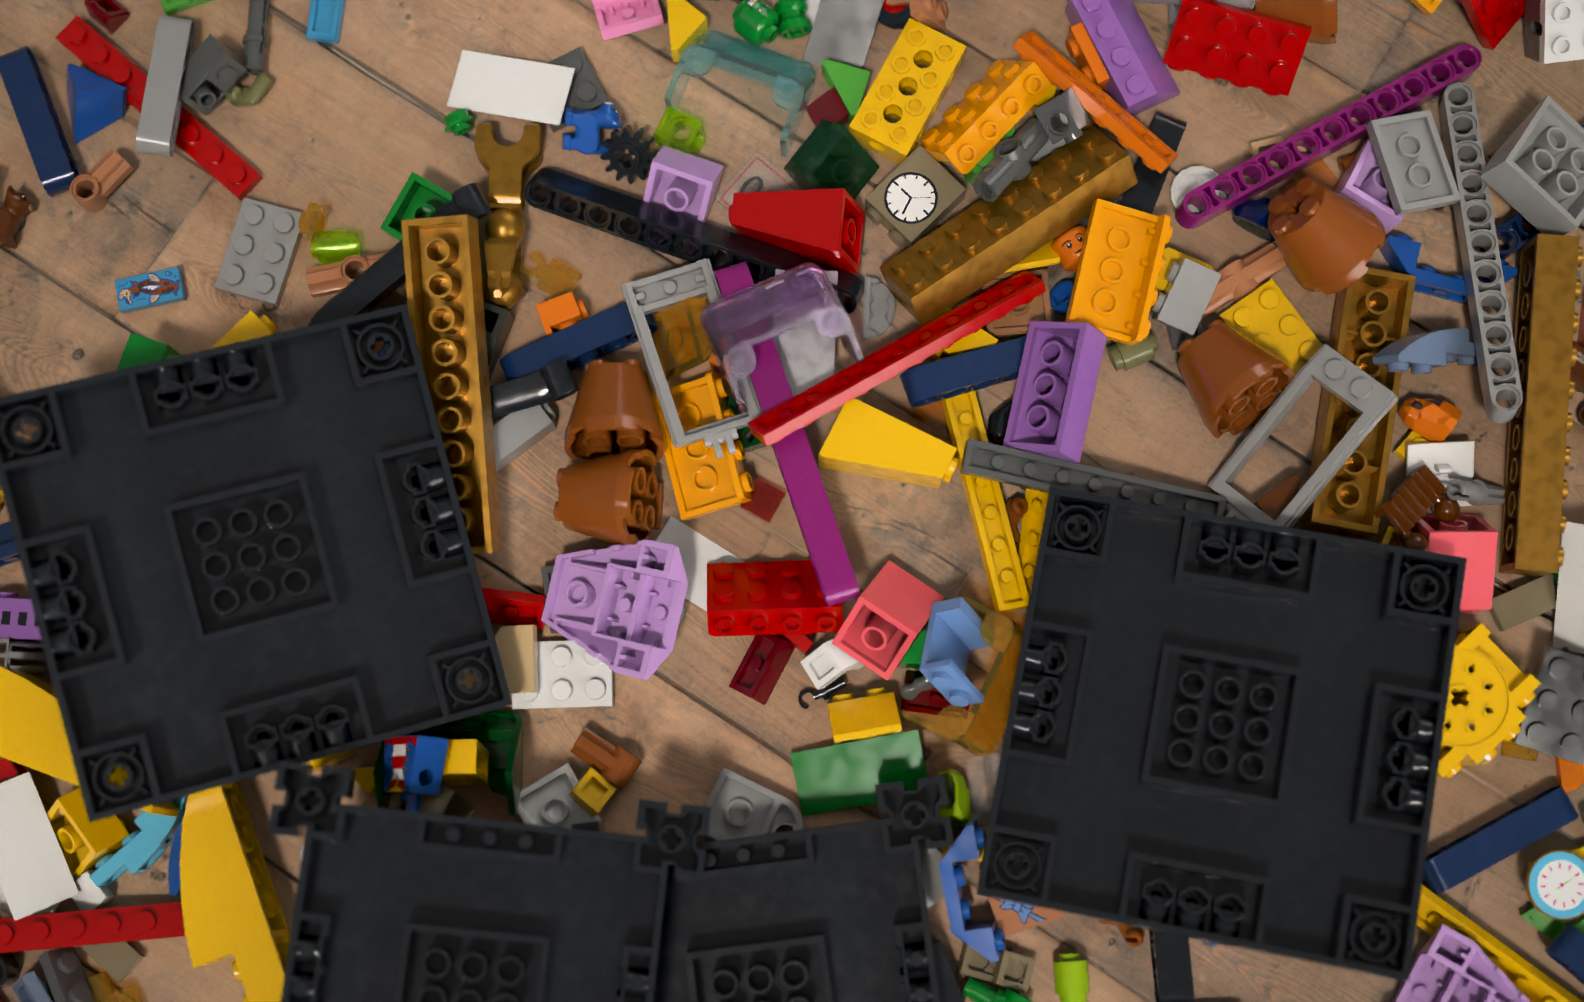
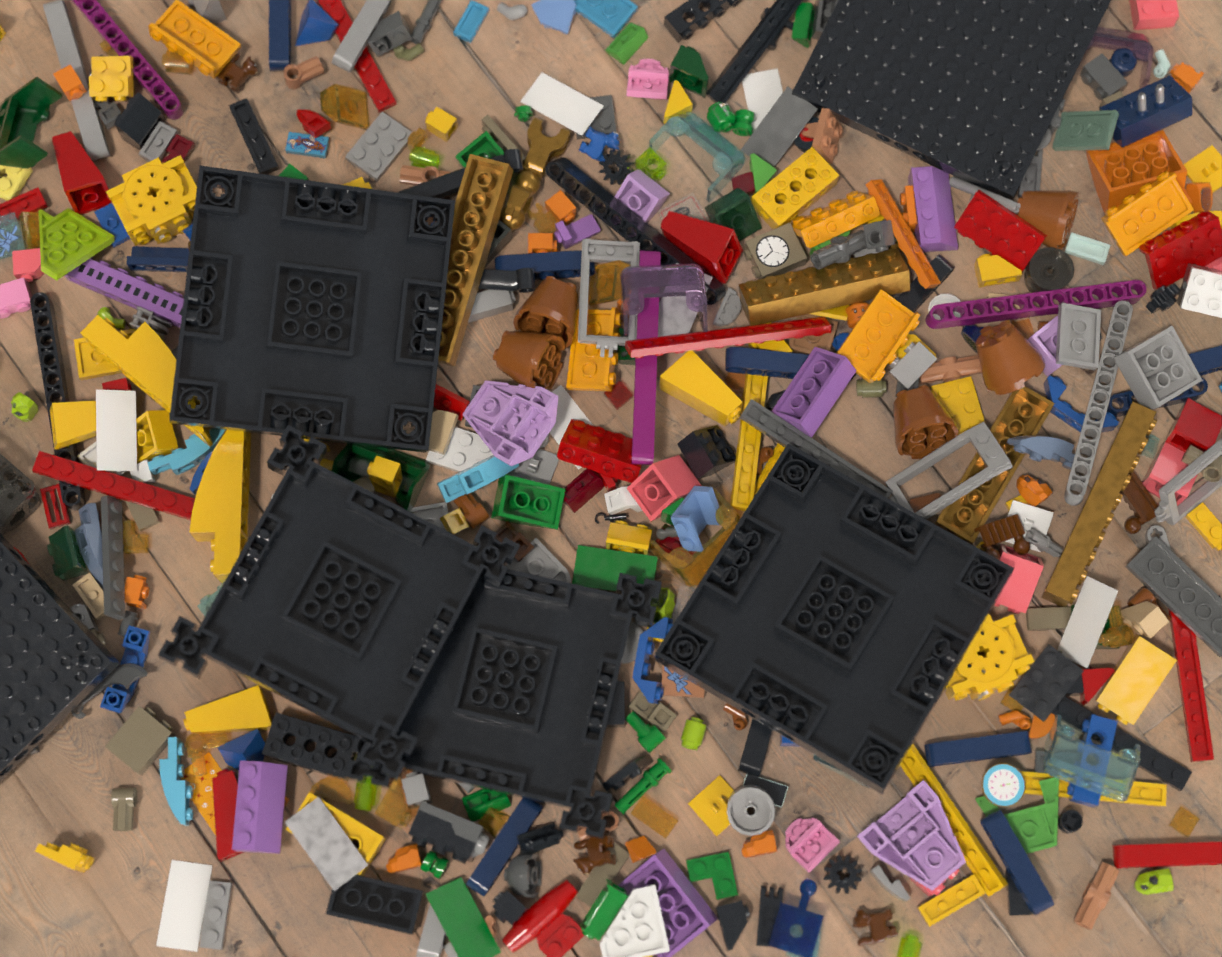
camera: 15 degrees right, 5 degrees down
(63, 308) = (253, 137): none -> black plate
(145, 253) = (313, 122): none -> red plate
(185, 209) = (345, 106): none -> clear yellow slope
(340, 184) = (441, 123): none -> yellow brick
(413, 768) = (359, 463): blue torso -> none
(439, 174) = (498, 135): none -> dark tan plate
(570, 247) = (561, 207): none -> orange brick
(594, 717) = (473, 478): none -> medium azure slope
(606, 274) = (576, 231): none -> medium lavender bracket
(688, 665) = (538, 468): none -> light grey piece
(691, 718) = (528, 502): none -> green slope
(691, 785) = (511, 533): none -> reddish brown slope
(928, 538) = (707, 451): none -> black slope
(1246, 106) = (995, 271): none -> yellow slope
(1328, 79) = (1048, 270): none -> clear smoke wheel
(1368, 23) = (1087, 248): none -> light aqua tile
(1509, 58) = (1163, 298): none -> black gear
(1534, 769) = (1017, 718): none -> orange arm

